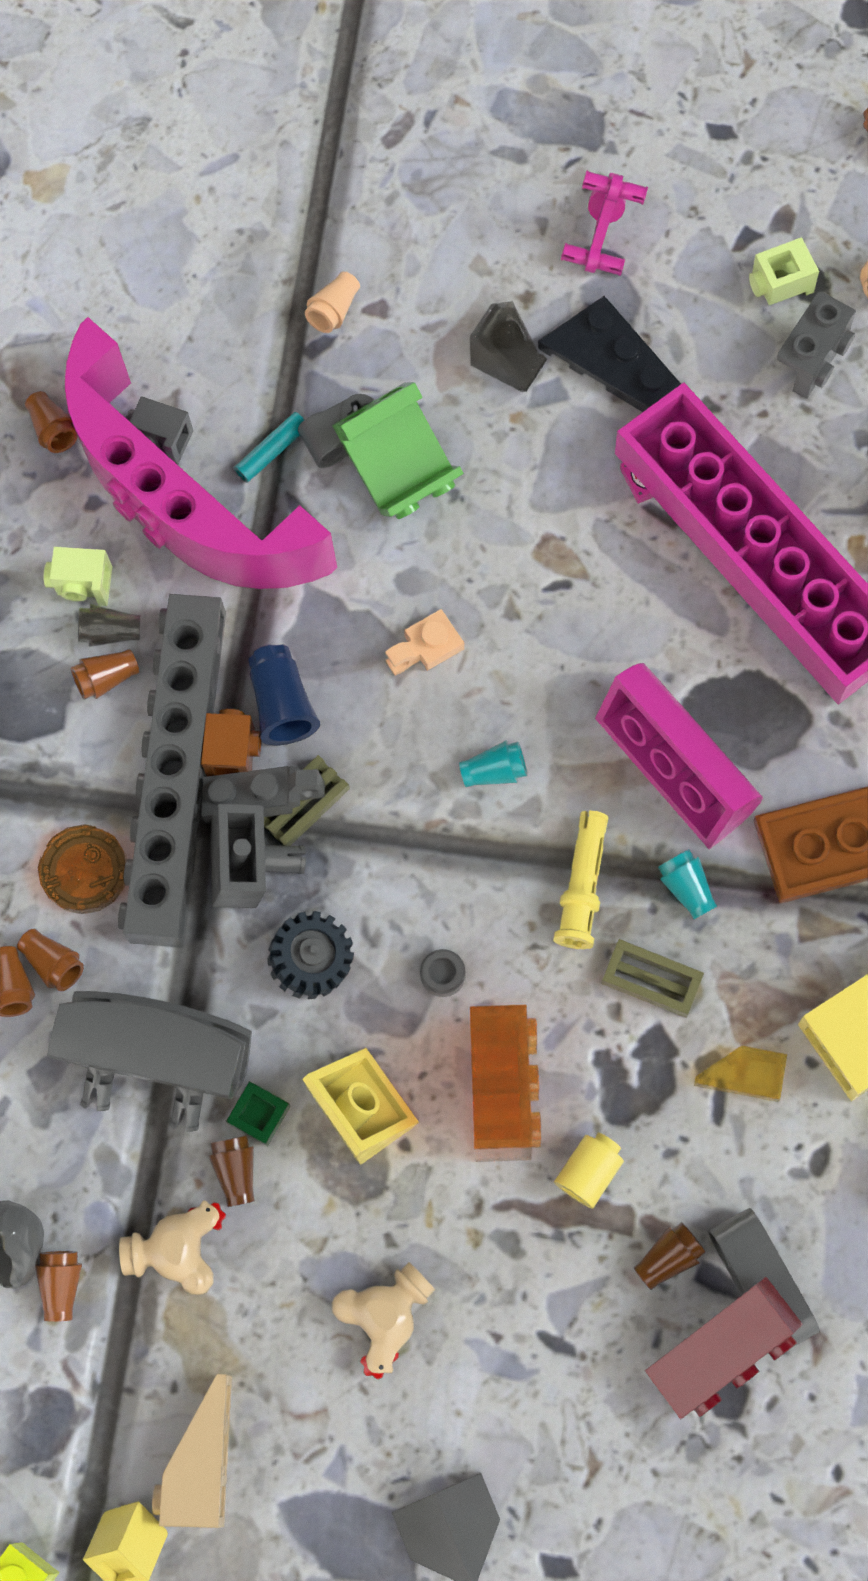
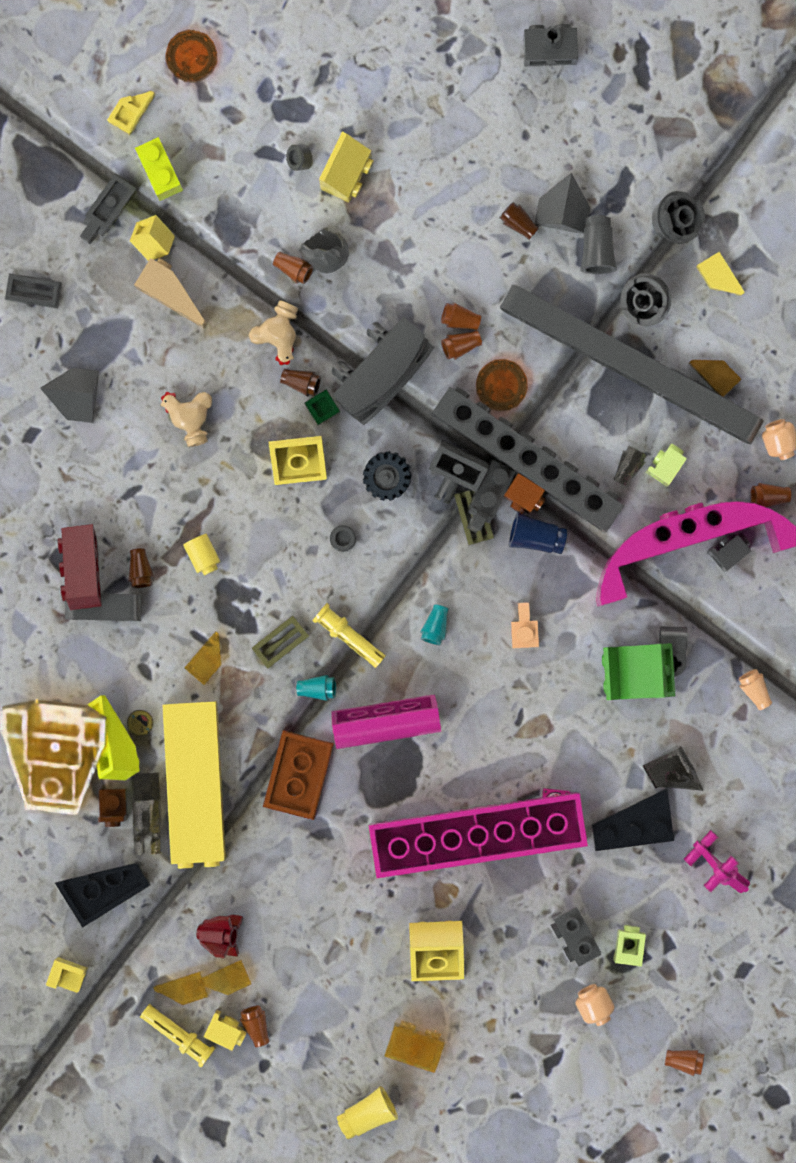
camera: 115 degrees right, 15 degrees up
(104, 672) = (603, 449): dark orange cone -> none
(269, 448) = (687, 608): teal piece -> none
(504, 1083) = (265, 534): clear orange brick -> none

